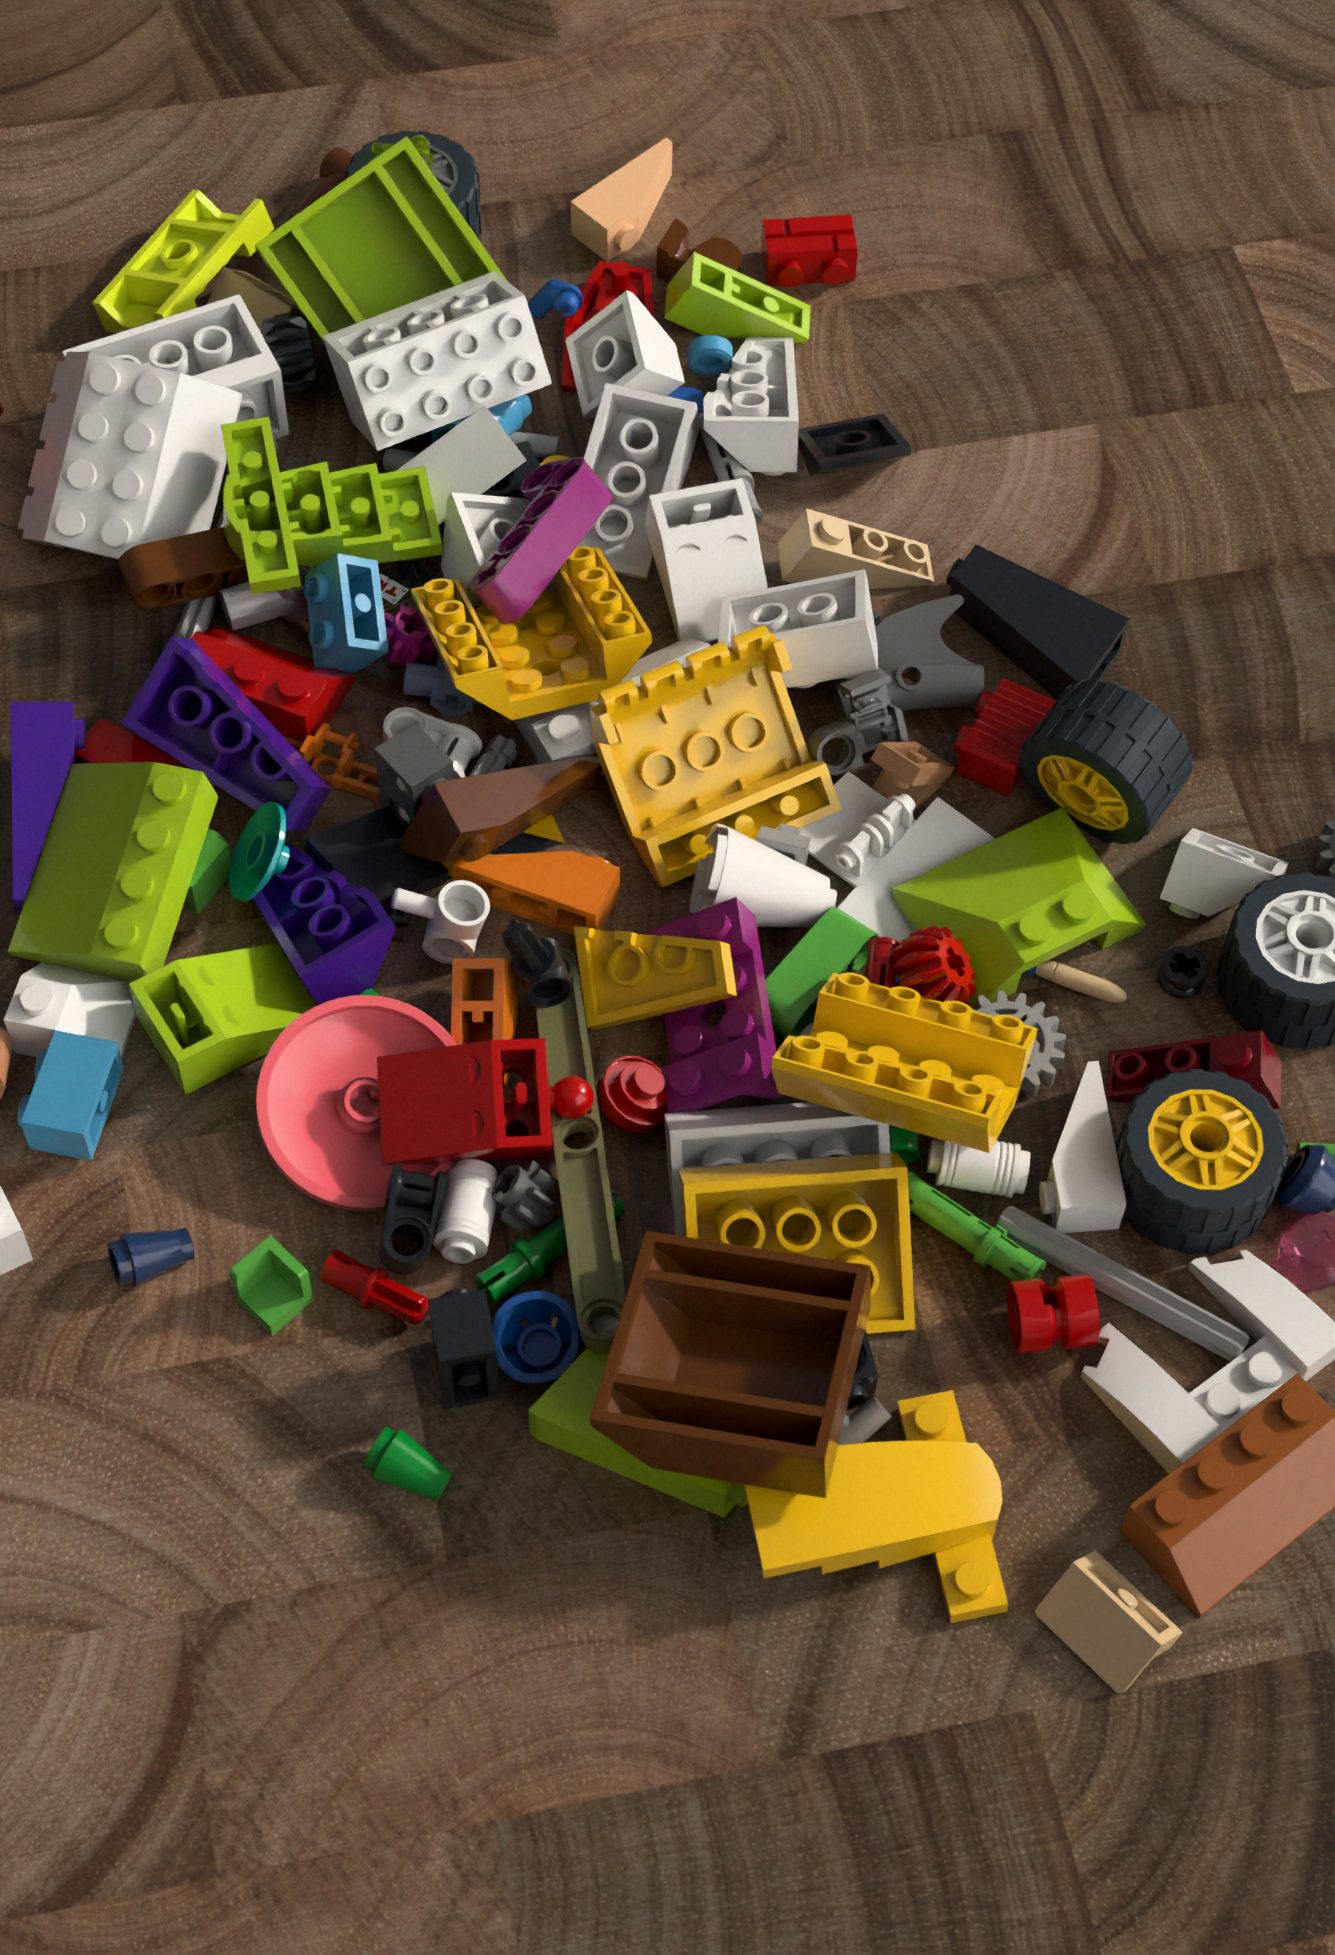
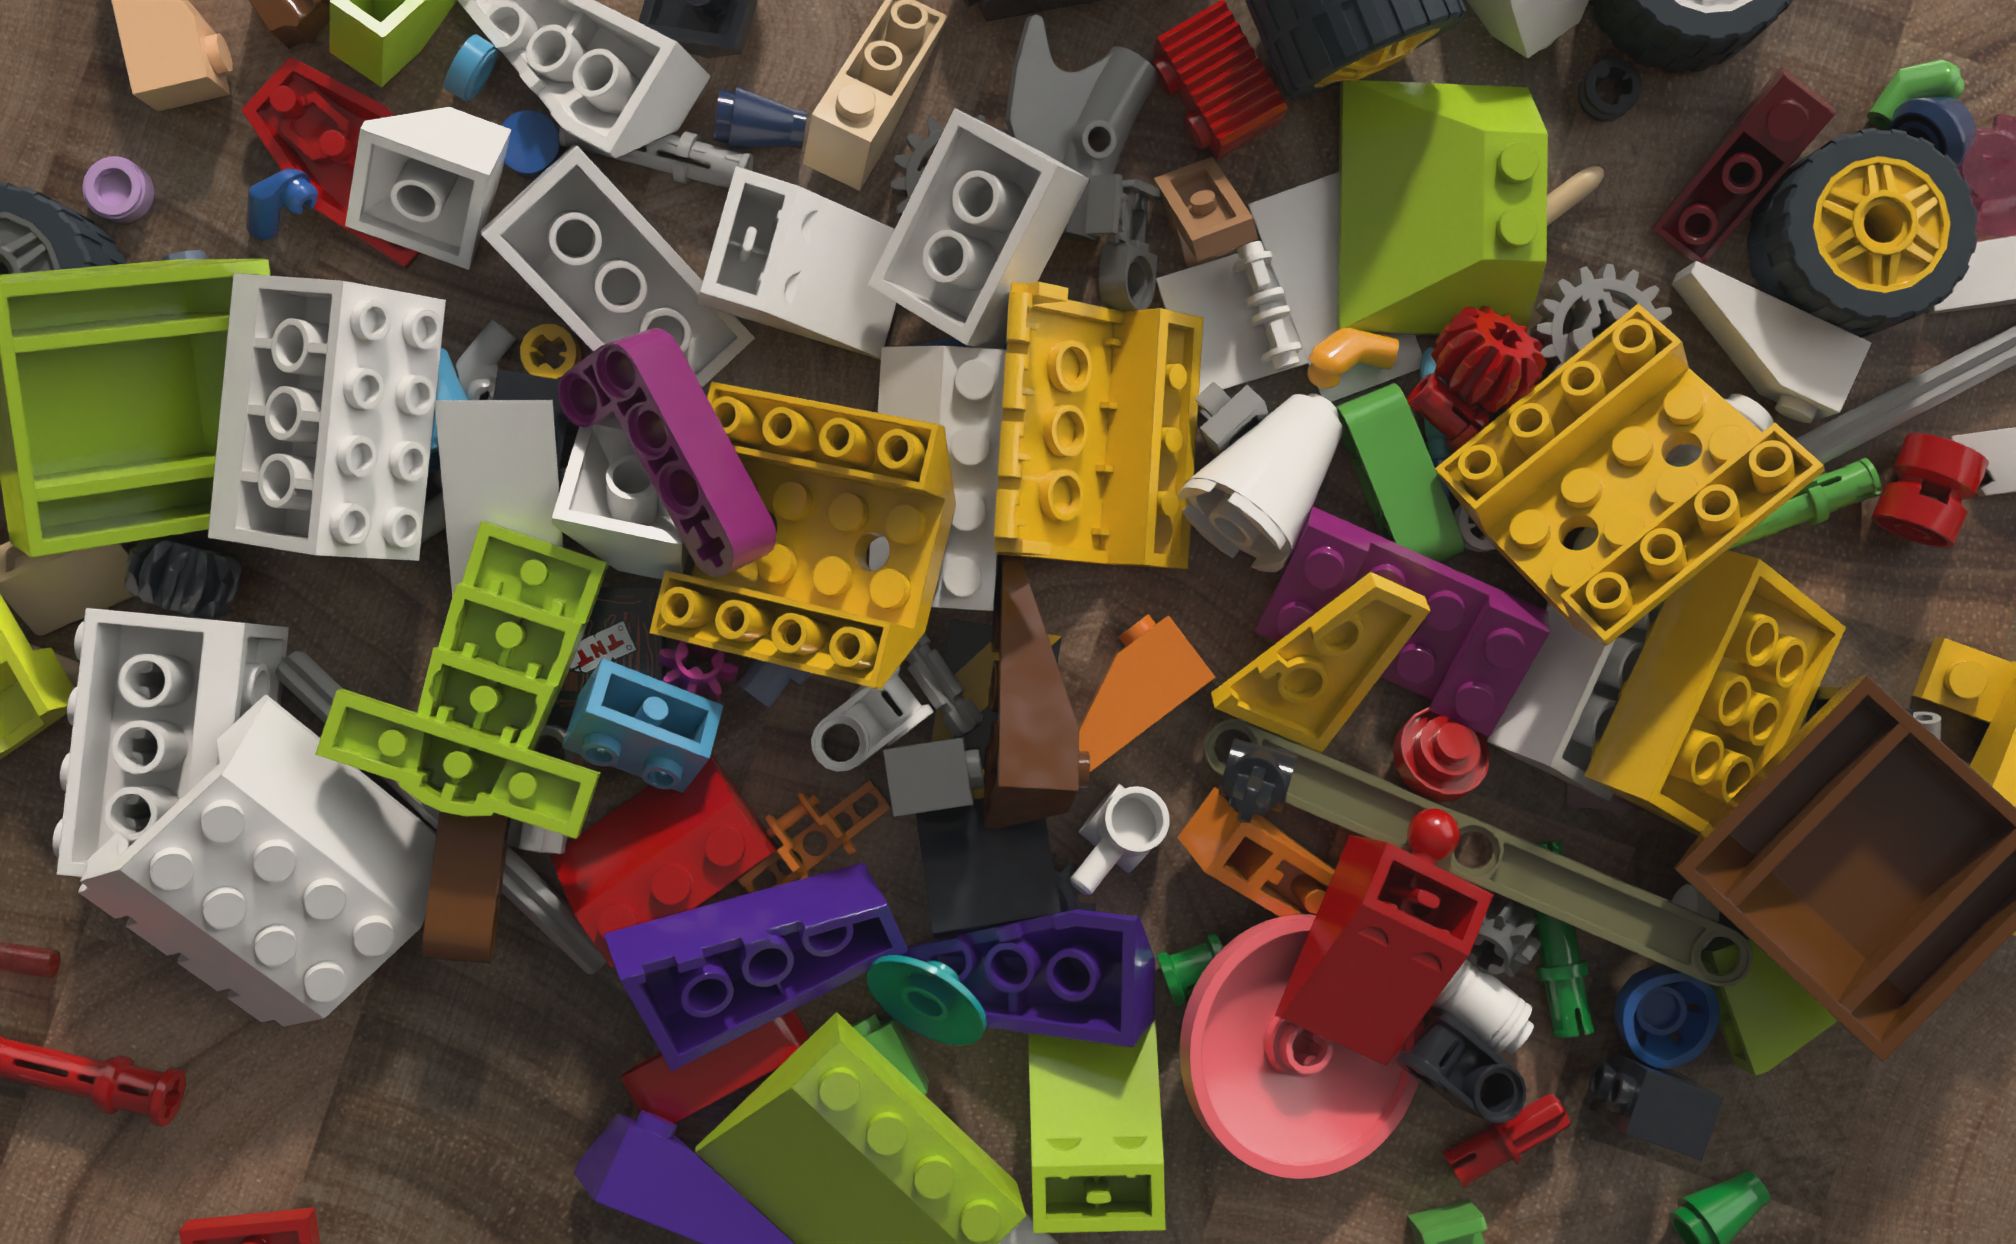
camera: 60 degrees left, 30 degrees up
(508, 234) = (118, 190): none -> lavender tile
(781, 501) = (756, 121): none -> dark blue cone
(881, 894) = (1344, 350): none -> light orange arm

